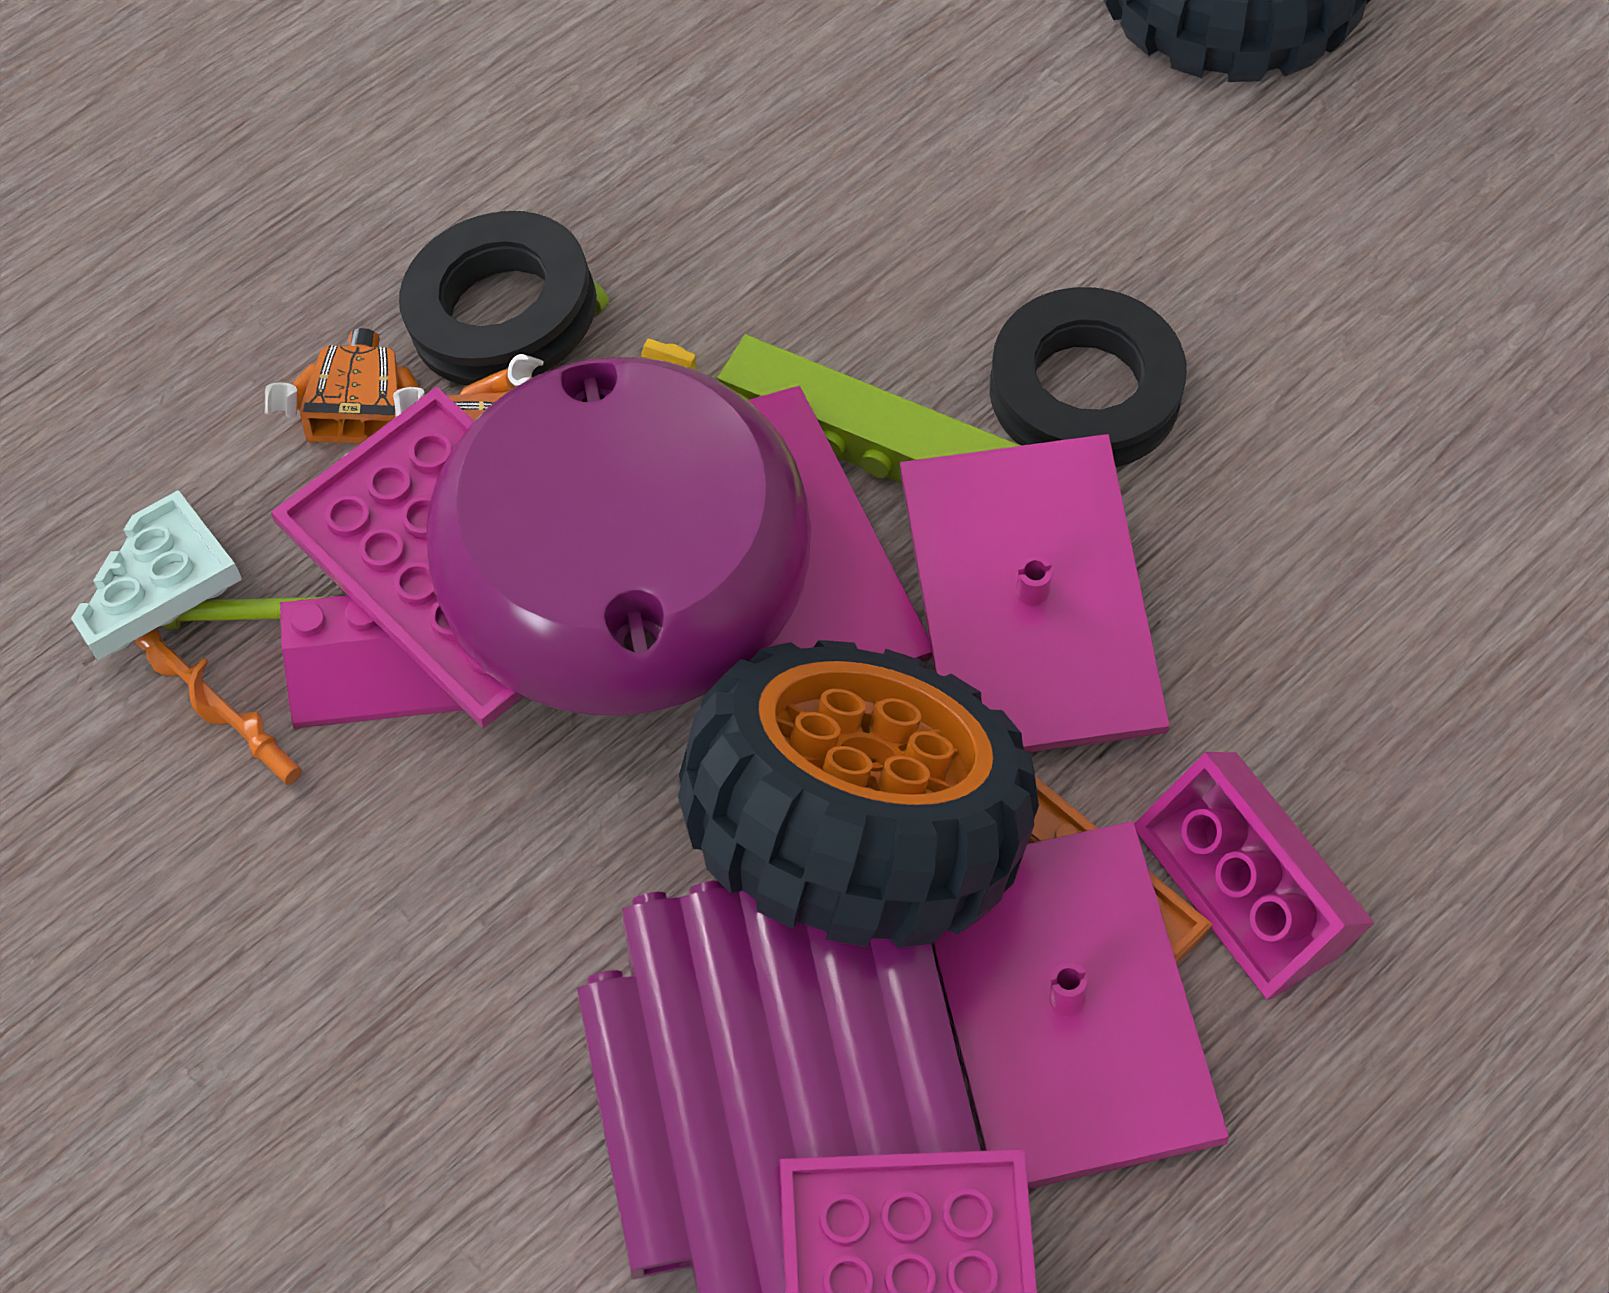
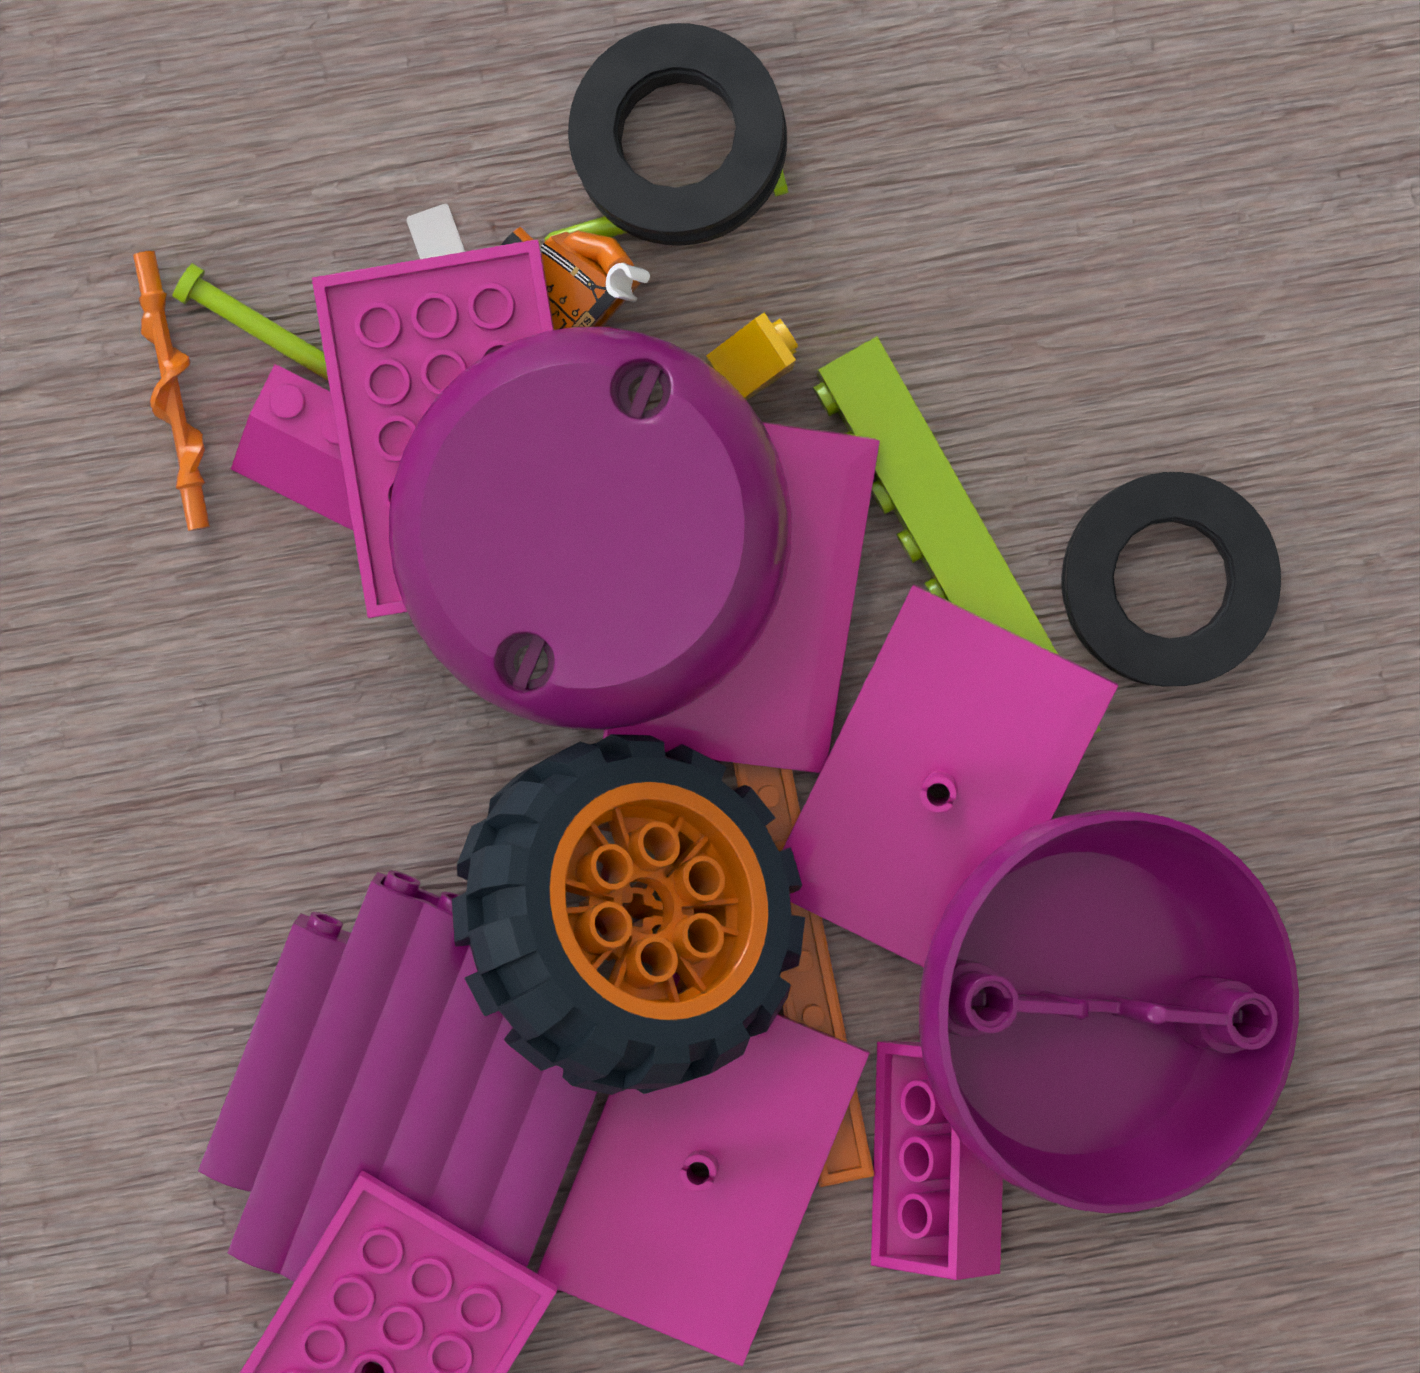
camera: 35 degrees right, 30 degrees up
(155, 577) = (186, 250): light aqua plate -> none
(347, 391) = (482, 152): orange torso -> none
(1289, 642) = (1109, 1010): none -> magenta cylinder

